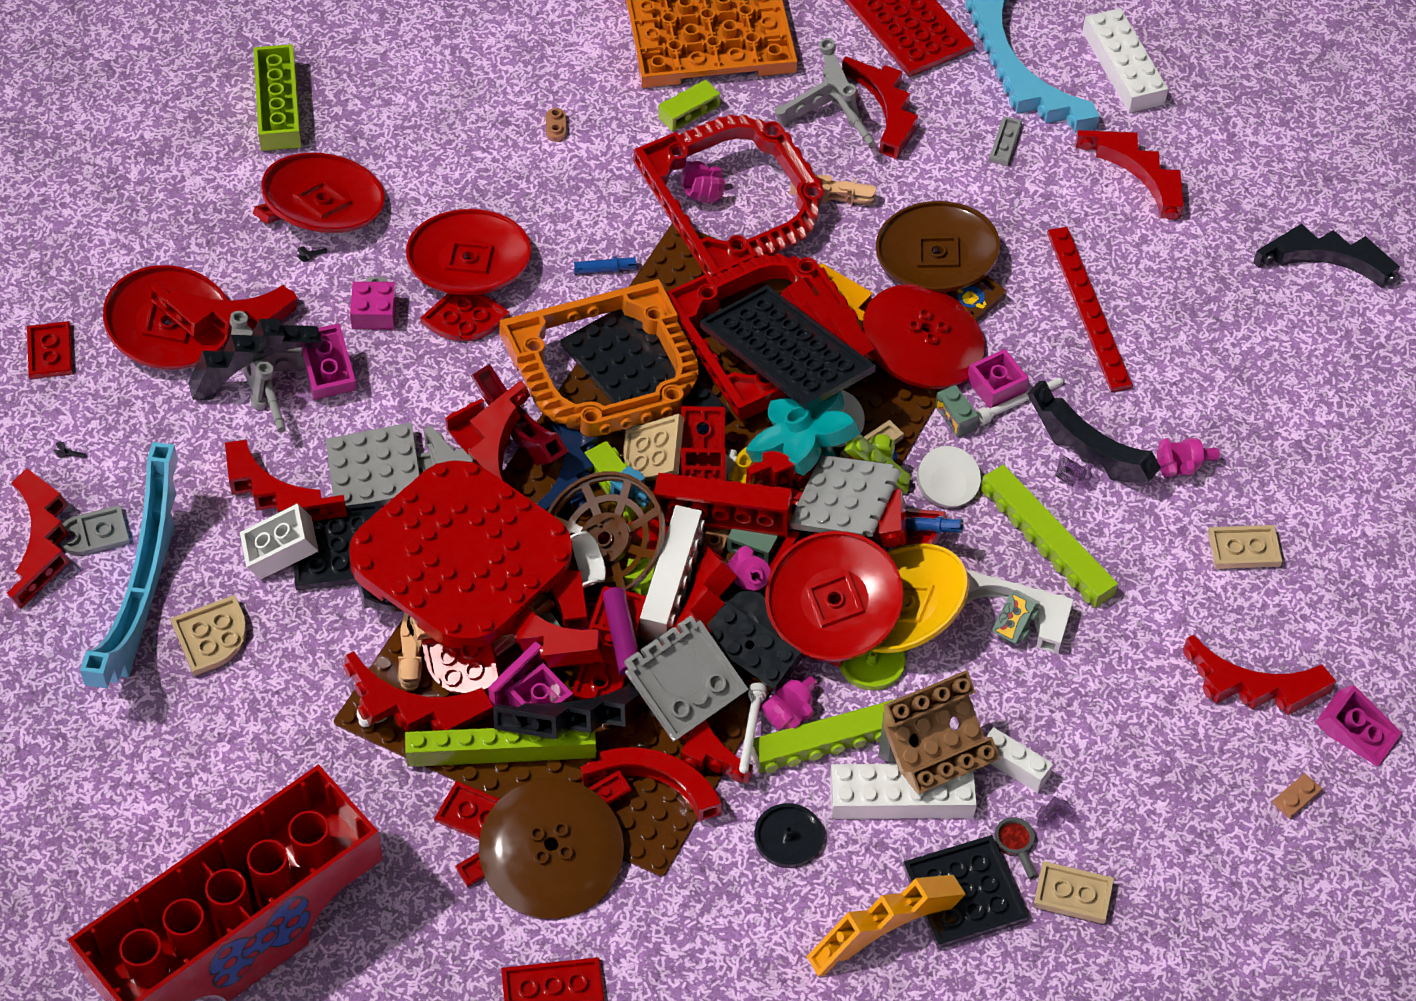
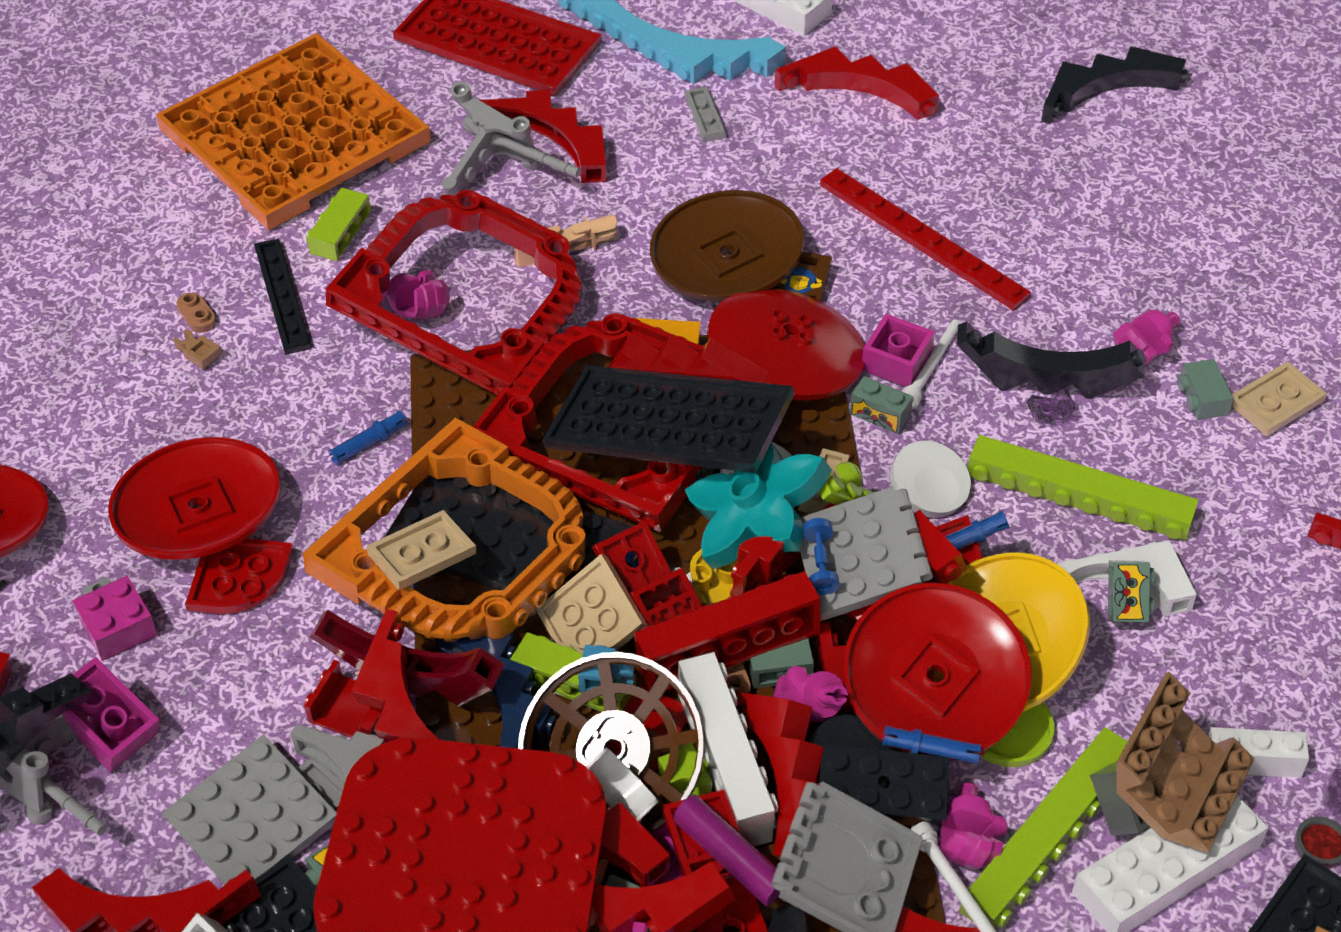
camera: 30 degrees left, 5 degrees down
(538, 152) = (198, 351): none -> medium nougat plate
(570, 354) = (421, 550): none -> tan plate
(618, 139) = (282, 296): none -> black tile
(787, 632) = (931, 744): none -> blue pin
(823, 469) = (818, 531): none -> blue wheel
(1195, 515) = (1205, 389): none -> sand green brick

